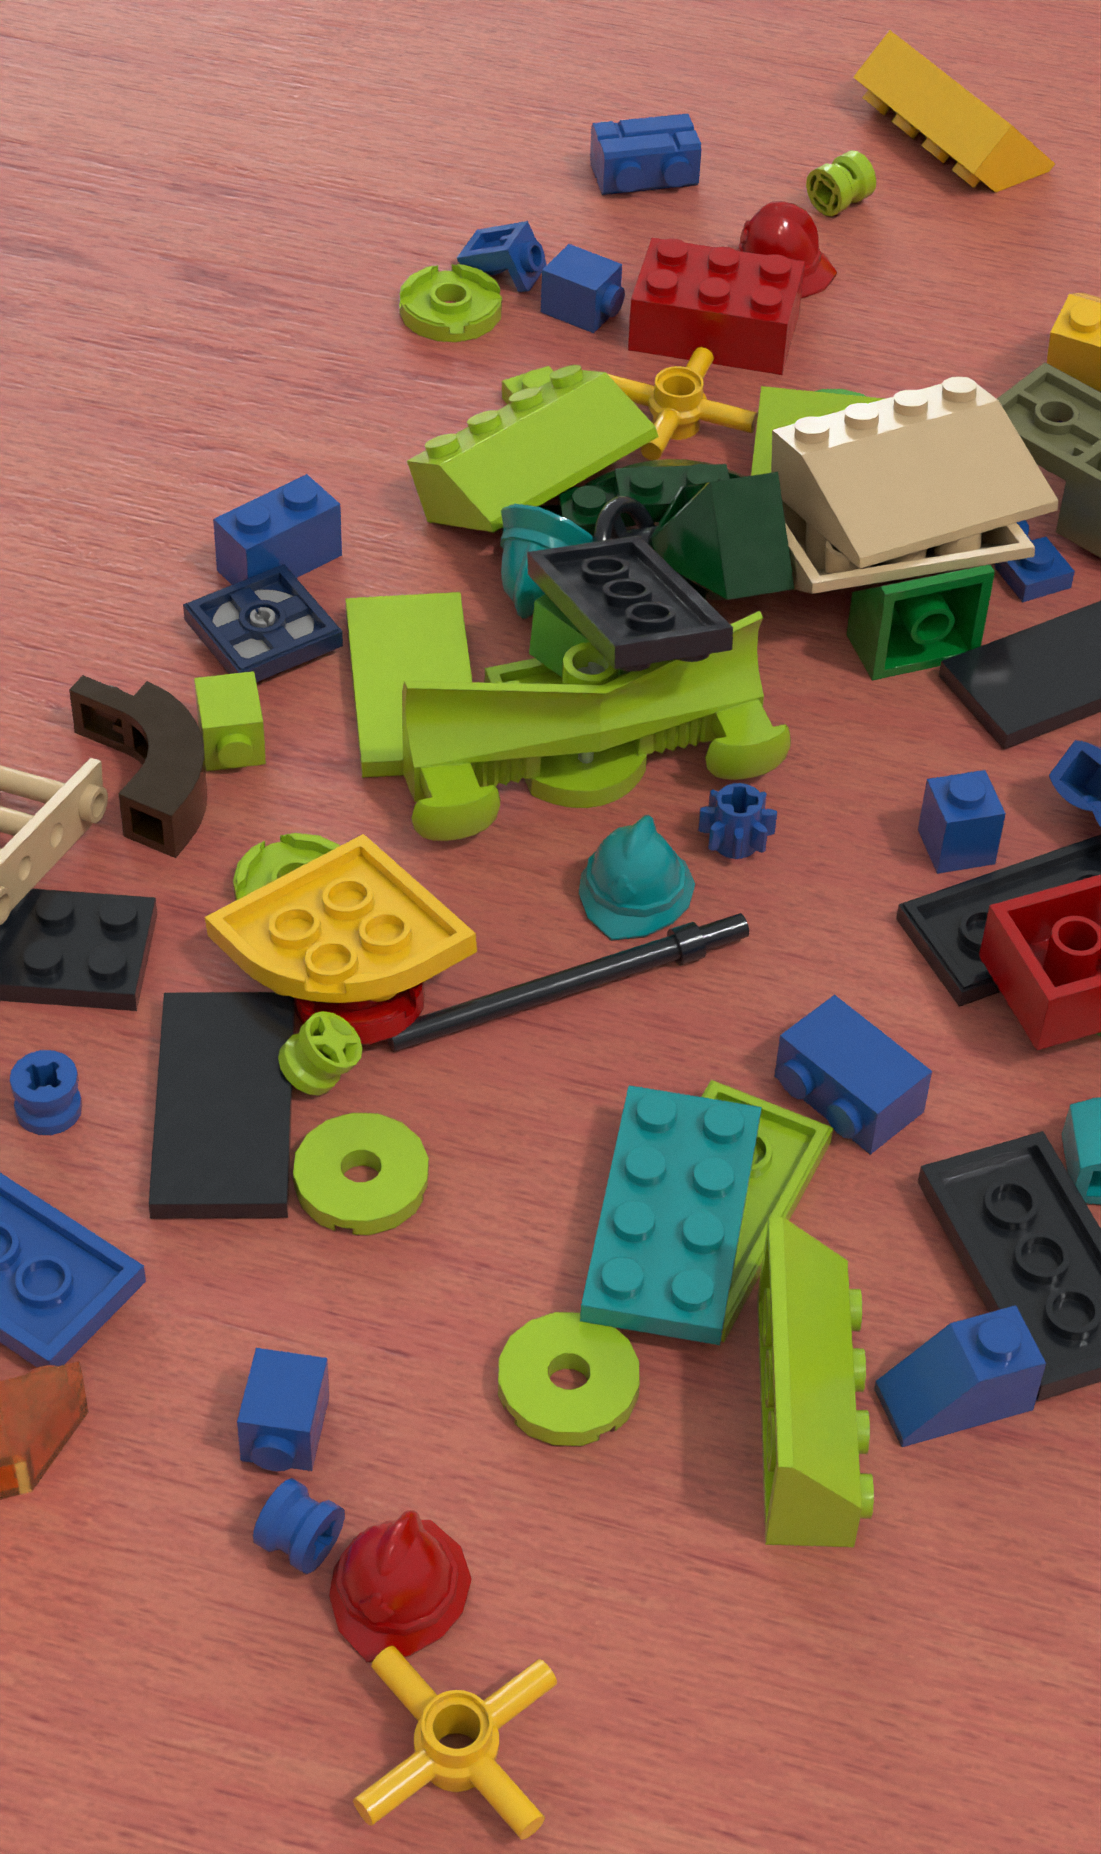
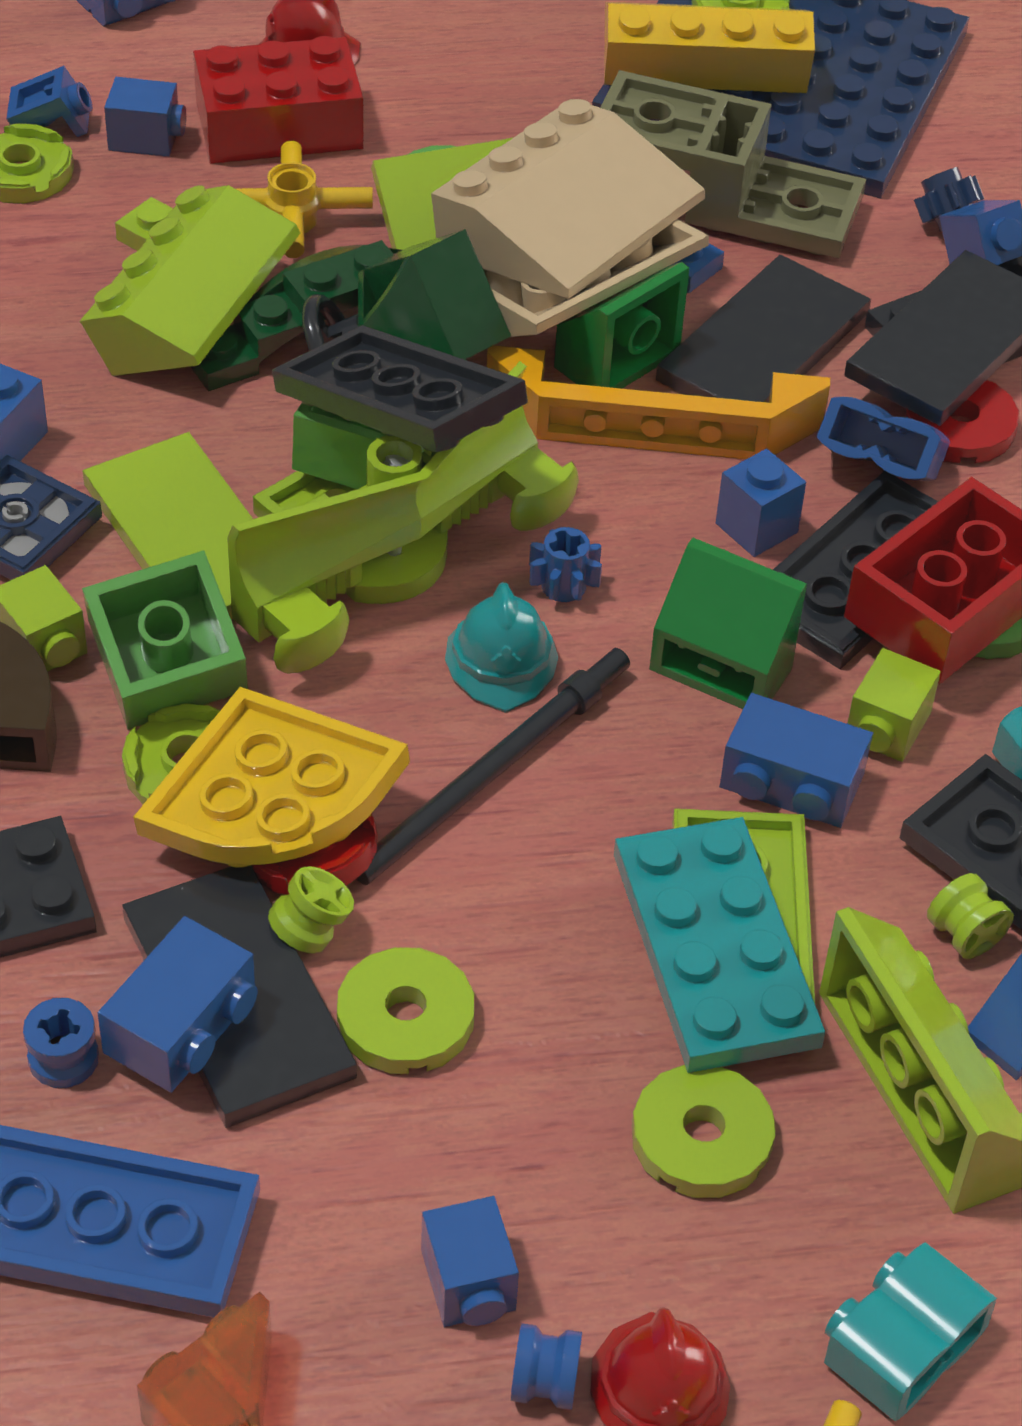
camera: 25 degrees left, 0 degrees up
(152, 1092) = (178, 1004): none -> blue brick
(321, 769) = (165, 637): none -> bright green brick
(529, 530) = (243, 373): teal piece -> none
(647, 1626) = (907, 1329): none -> teal brick
(851, 926) = (727, 625): none -> green slope
(912, 713) = (666, 419): none -> light orange slope
(936, 1277) = (970, 915): none -> lime wheel
(979, 1054) = (894, 702): none -> lime brick

